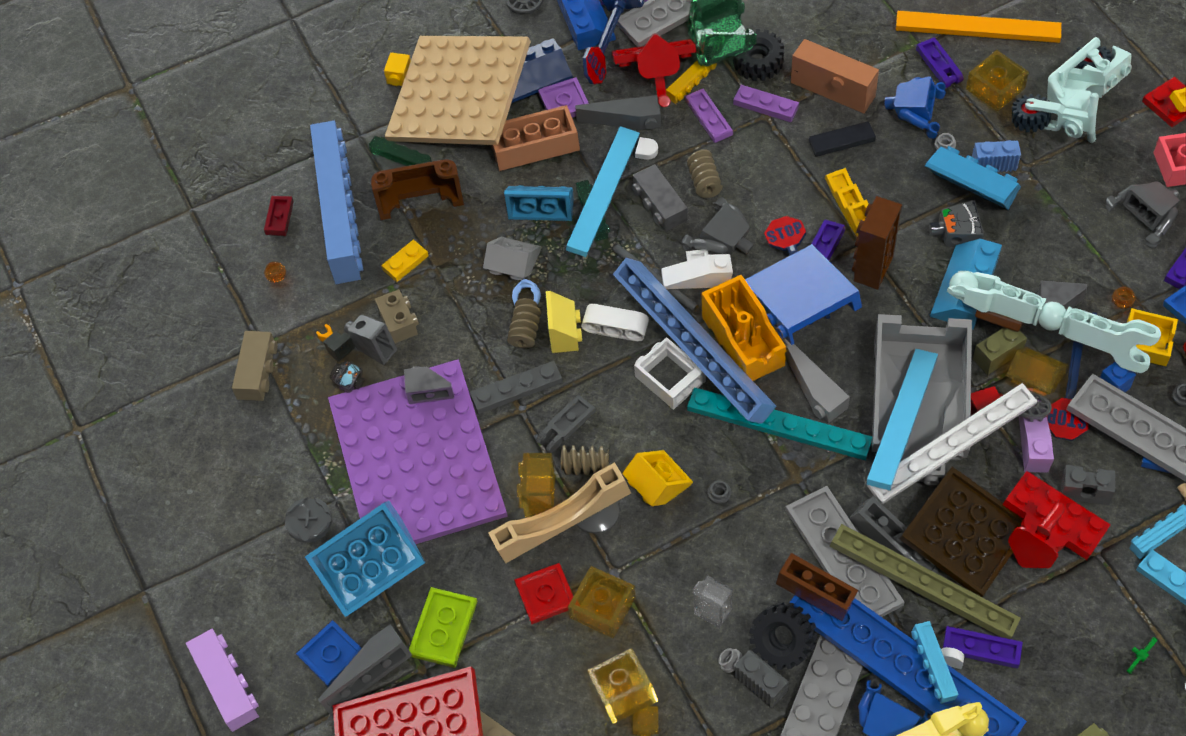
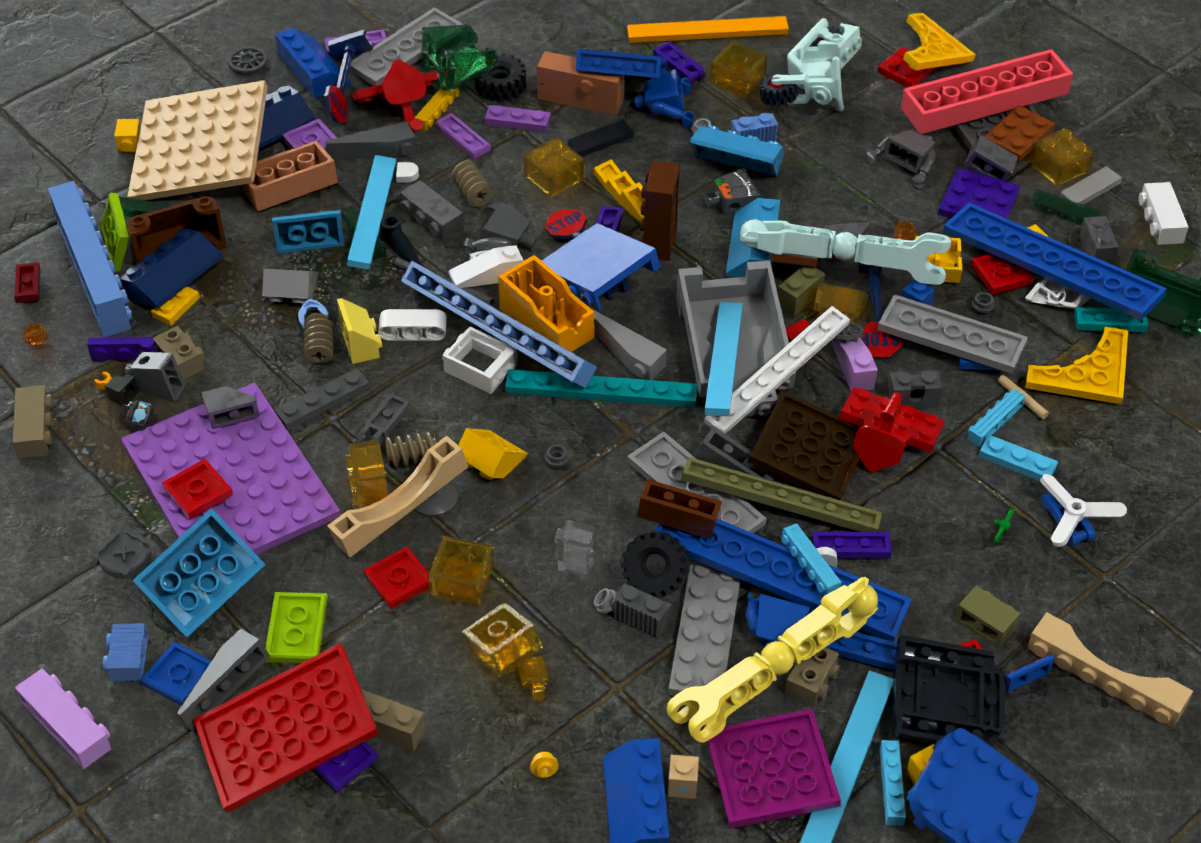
camera: 20 degrees left, 10 degrees down
(289, 623) = (126, 652): none -> medium blue brick
(347, 302) = (119, 347): none -> dark purple plate
(363, 176) = (114, 230): none -> lime tile
(382, 468) = (197, 488): none -> red plate
(406, 224) = (170, 268): none -> dark blue slope
(622, 225) = (397, 240): none -> black piece
(787, 167) = (553, 167): none -> clear yellow brick
(877, 61) = (620, 63): none -> blue panel

